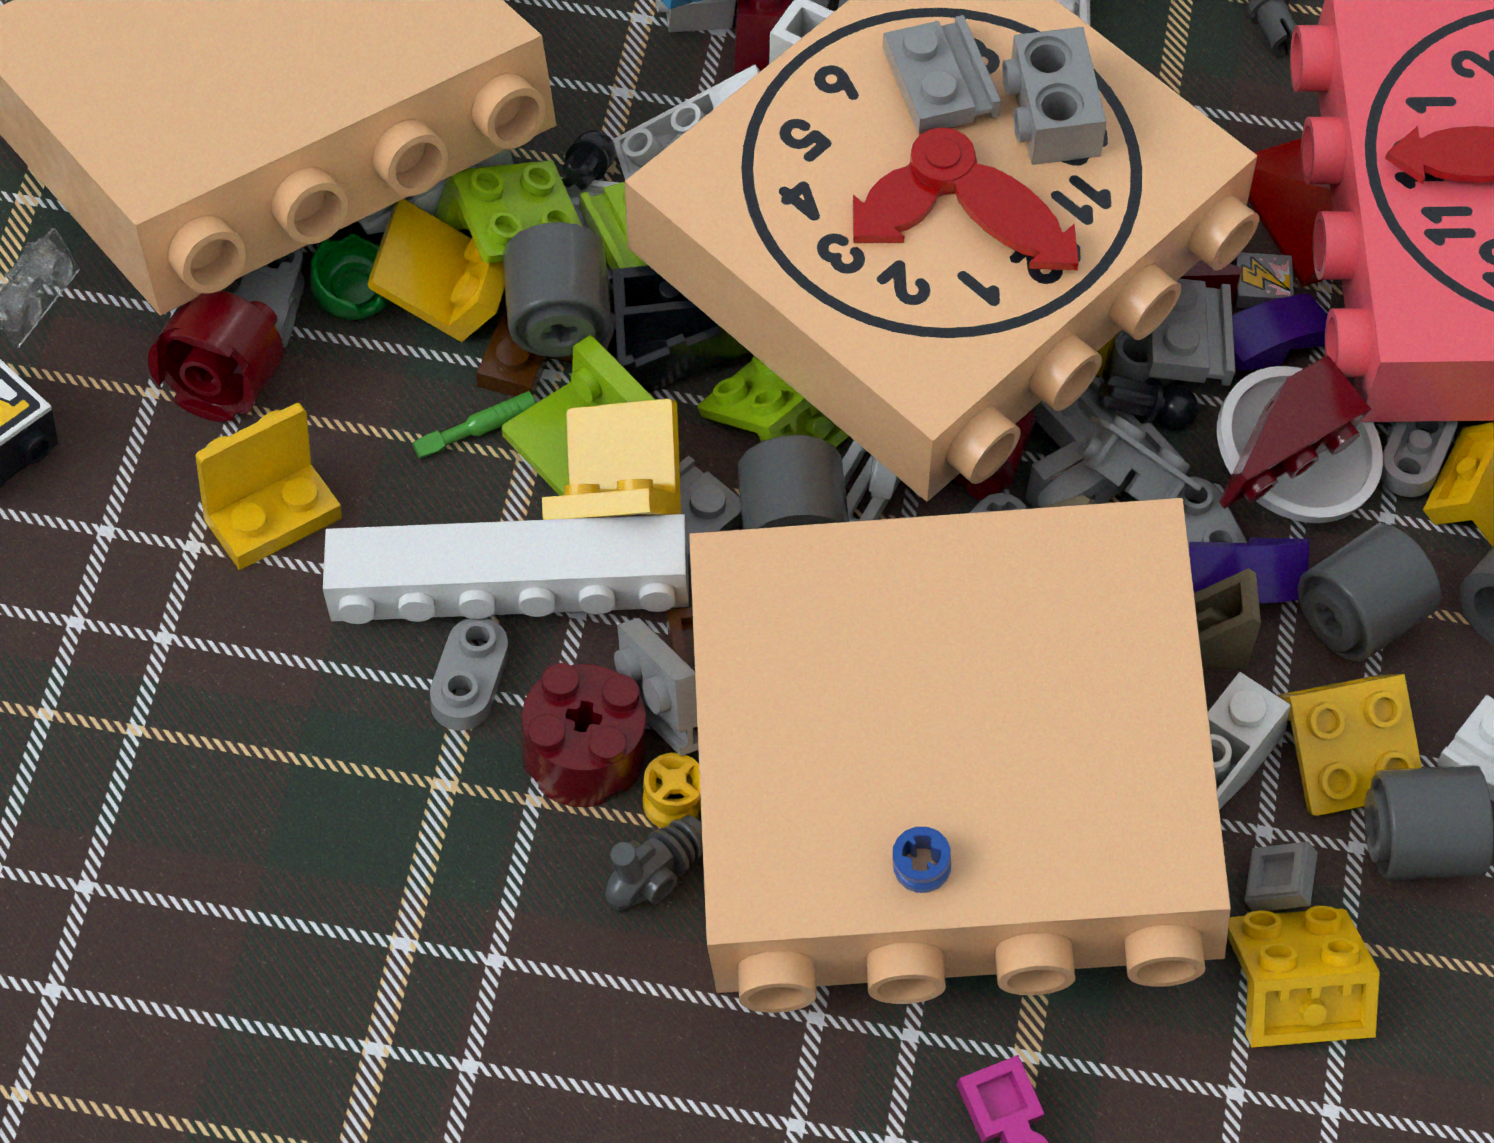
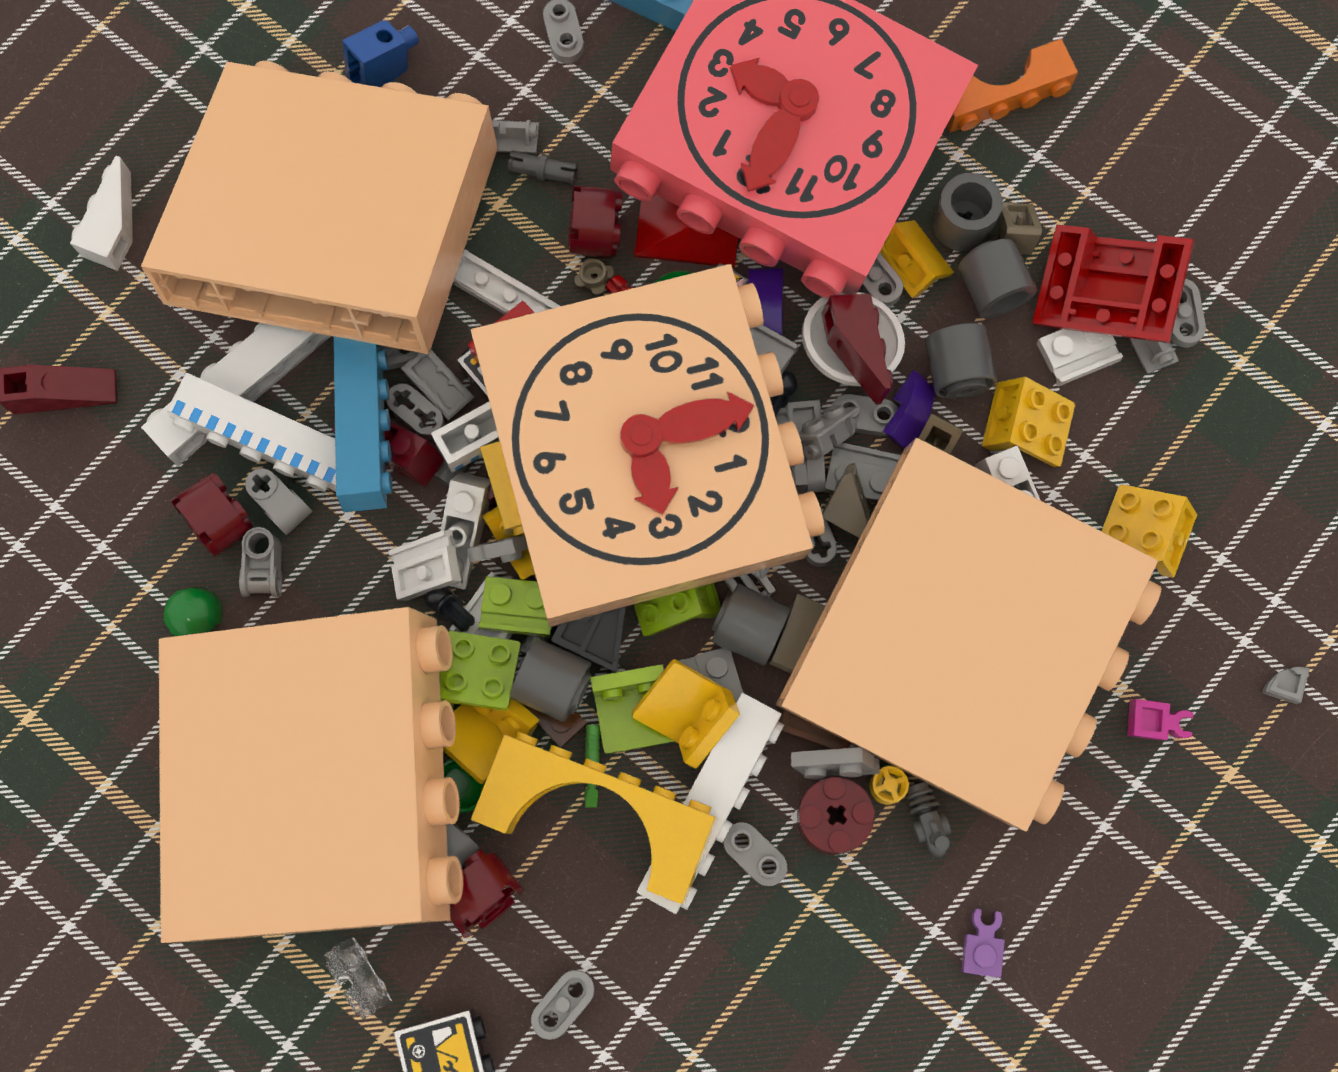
camera: 55 degrees left, 20 degrees up
(124, 530) = (563, 1004): none -> light grey plate
(262, 487) = (587, 910): yellow bracket -> none
(432, 515) = (527, 772): none -> yellow arch
(503, 1033) = (982, 951): none -> medium lavender plate
(626, 109) = (424, 565): none -> white plate
(935, 875) = (1049, 709): blue bush -> none
(941, 74) = (583, 402): light grey plate -> none
(1053, 83) = (644, 340): light grey brick -> none
(1233, 74) = (594, 221): none -> dark red brick
(1281, 876) = (1092, 505): light grey tile -> none
(1429, 822) = (1108, 416): dark grey piece -> none

